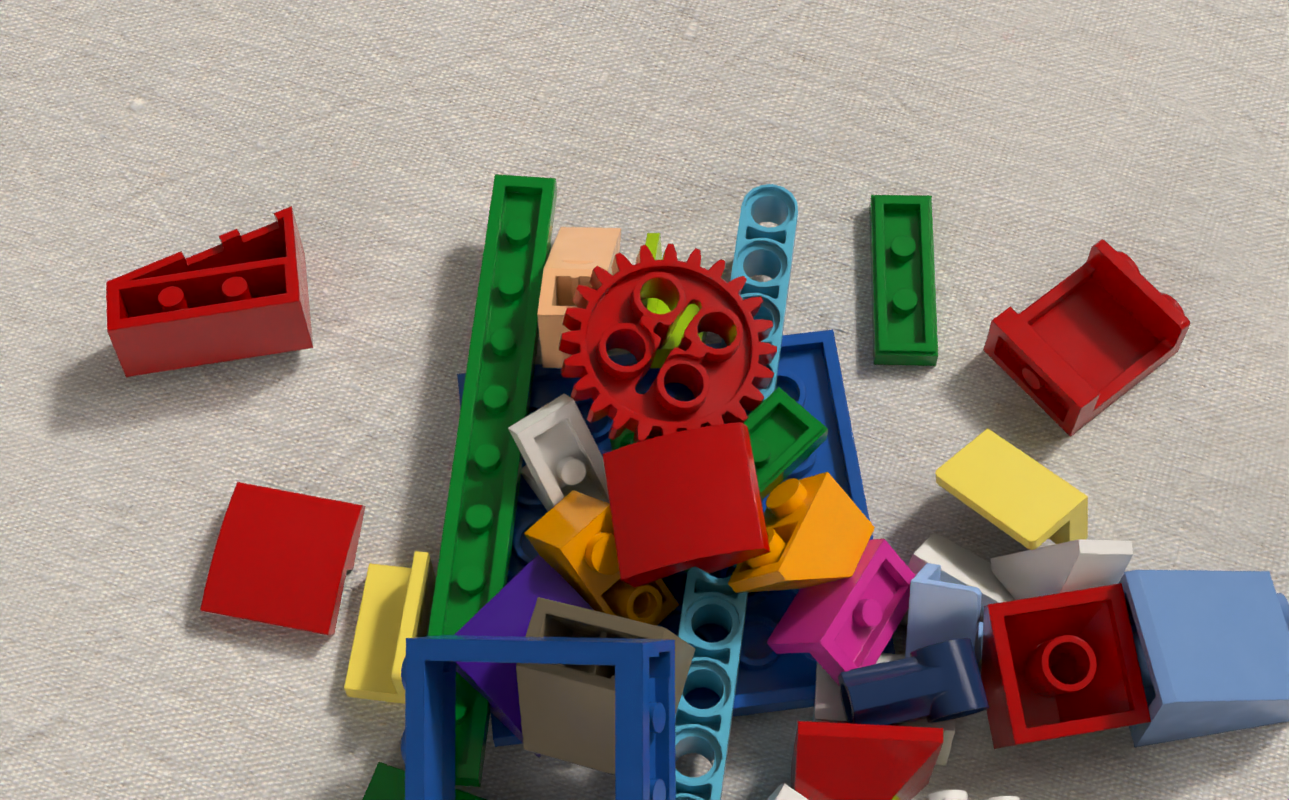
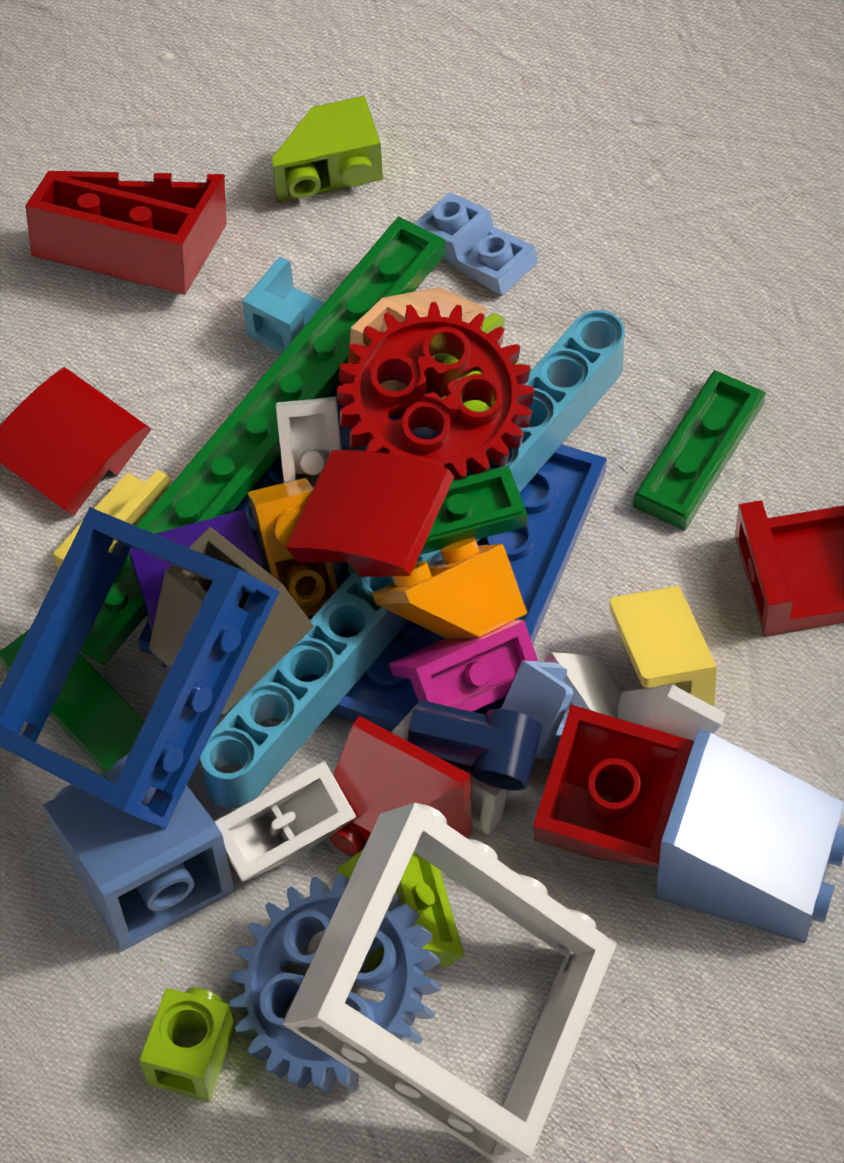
camera: 30 degrees right, 5 degrees down
(373, 132) = (328, 151): none -> lime slope
(424, 323) = (276, 309): none -> medium azure panel
(582, 171) = (476, 245): none -> light blue slope

